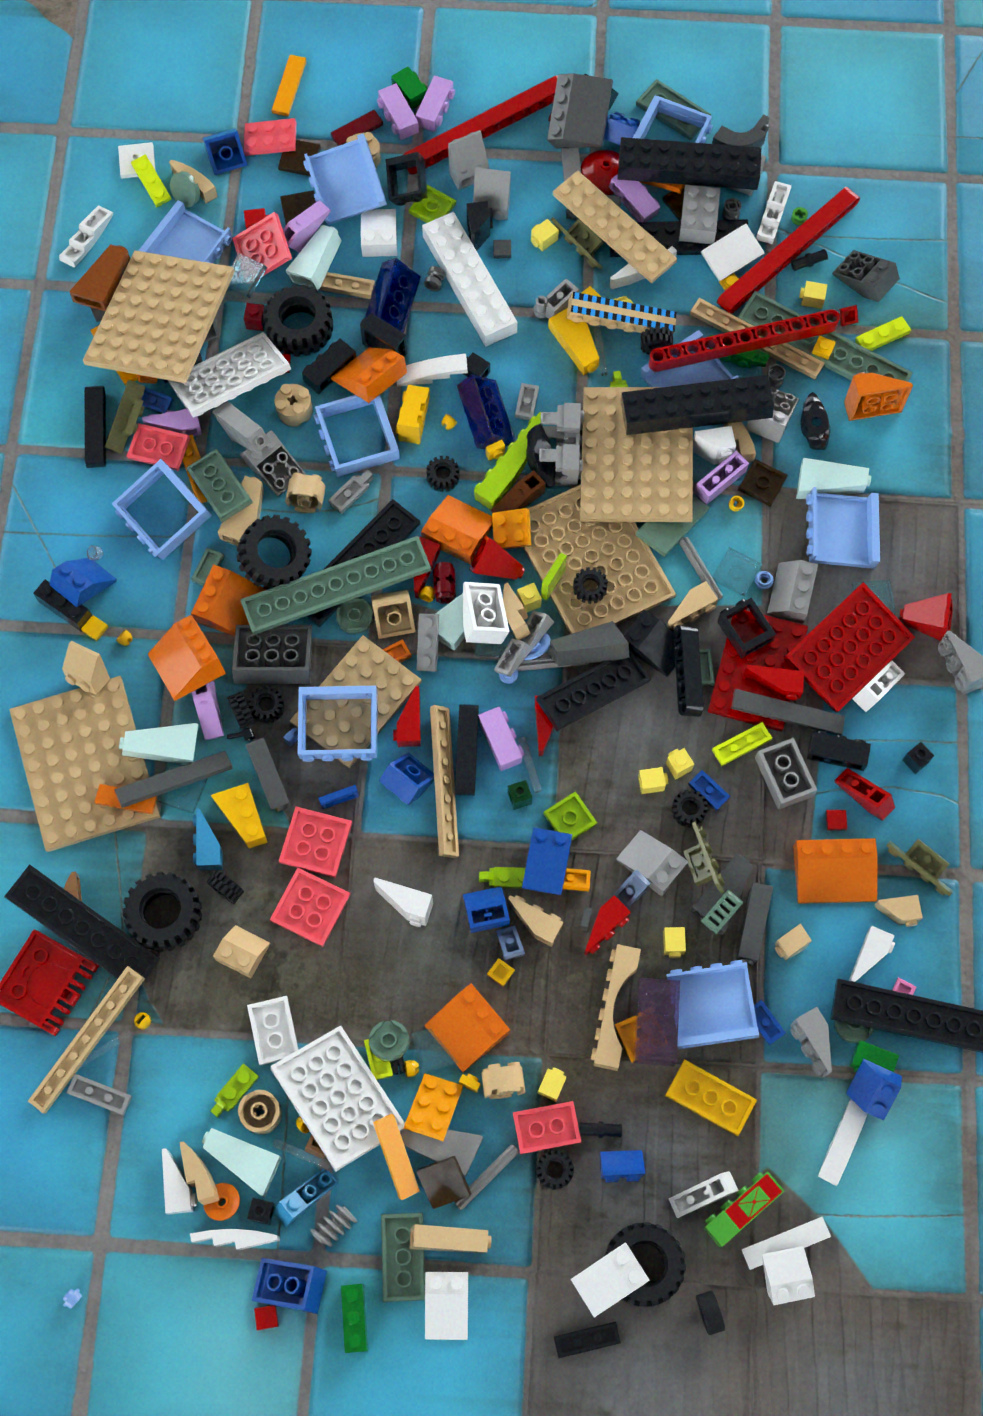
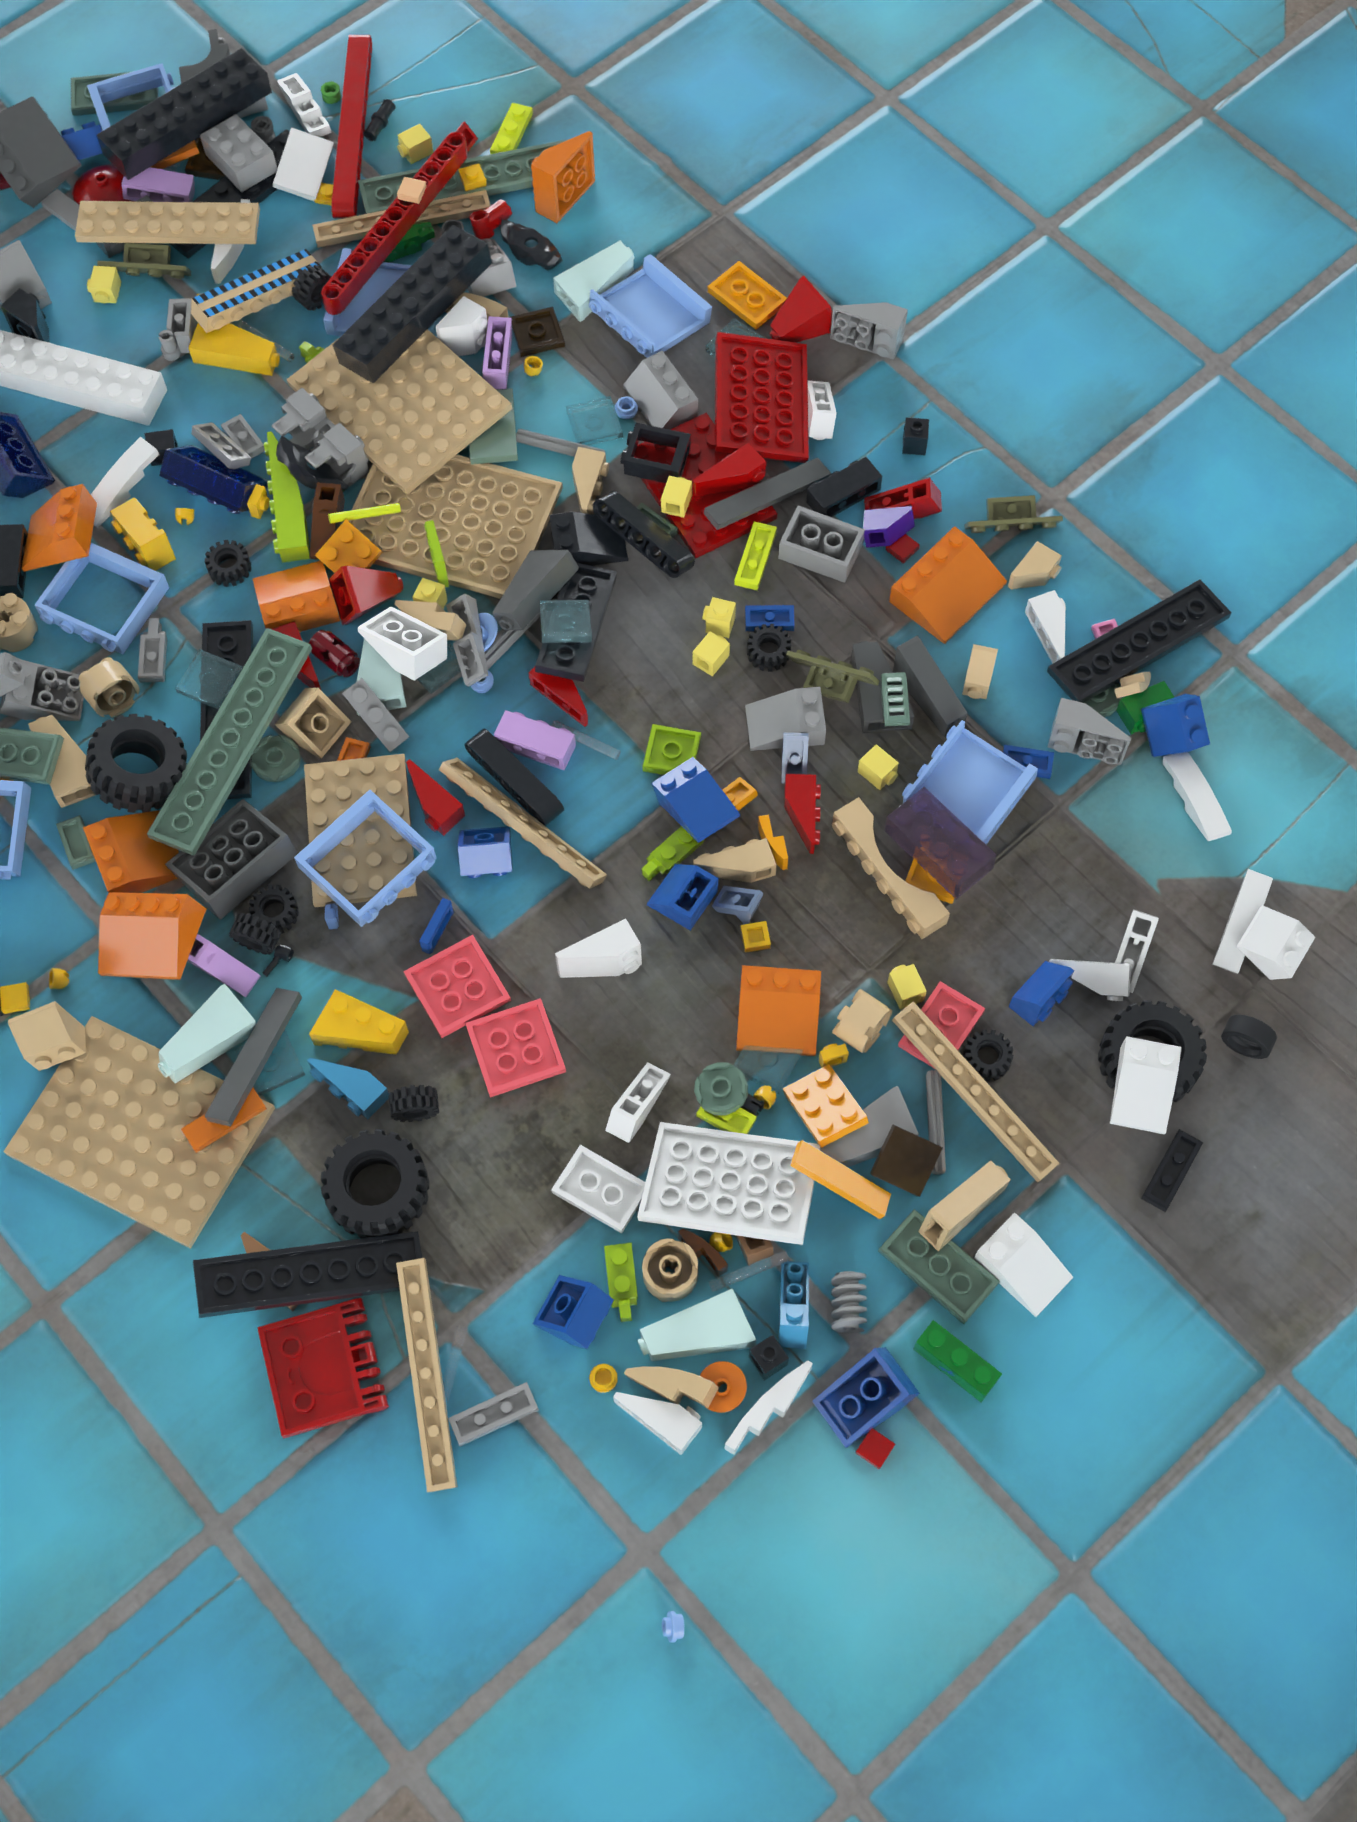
camera: 45 degrees left, 5 degrees down
(145, 1023) = (467, 1306): yellow hinge -> none
(171, 1133) = (603, 1378): none -> yellow plate
(191, 1082) = (573, 1311): none -> blue slope
(241, 951) = (492, 1150): tan slope -> none
(267, 774) = (343, 966): dark grey slope -> none
(287, 1113) = (703, 1248): none -> reddish brown slope
(340, 1002) = (636, 1102): none -> white slope
(362, 536) = (208, 679): none -> clear light blue tile
(380, 334) = (34, 480): black window -> none
(427, 594) = (327, 678): yellow hinge -> none
(434, 278) = (34, 403): dark grey wheel -> none
(502, 248) = (74, 329): dark grey tile -> none
(508, 396) = (221, 445): none -> light grey plate
(519, 794) = (606, 770): dark green brick -> none
(522, 1184) = (975, 1092): none -> tan plate
(544, 513) = (364, 513): none -> neon yellow bar
(566, 931) = (776, 844): none -> light orange slope
(583, 684) = (565, 621): none -> clear light blue tile
(586, 919) = (781, 820): dark grey tile -> none
(593, 575) = (474, 526): black tyre -> none
(600, 1129) = (989, 982): black pin -> none
(664, 1189) = (1101, 977): none -> white slope
(711, 1098) = (1050, 867): yellow tile -> none
(730, 665) = (676, 496): none -> light yellow brick
(743, 1209) = (1178, 929): bright green brick -> none
(769, 329) = (411, 190): none -> light nougat tile
(803, 384) = (487, 220): none -> red piece
(837, 798) = (887, 525): none -> dark purple slope
(867, 275) = (445, 92): dark grey slope -> none
(877, 1039) = (1133, 684): none -> tan slope
(913, 571) = (747, 295): none -> light orange plate

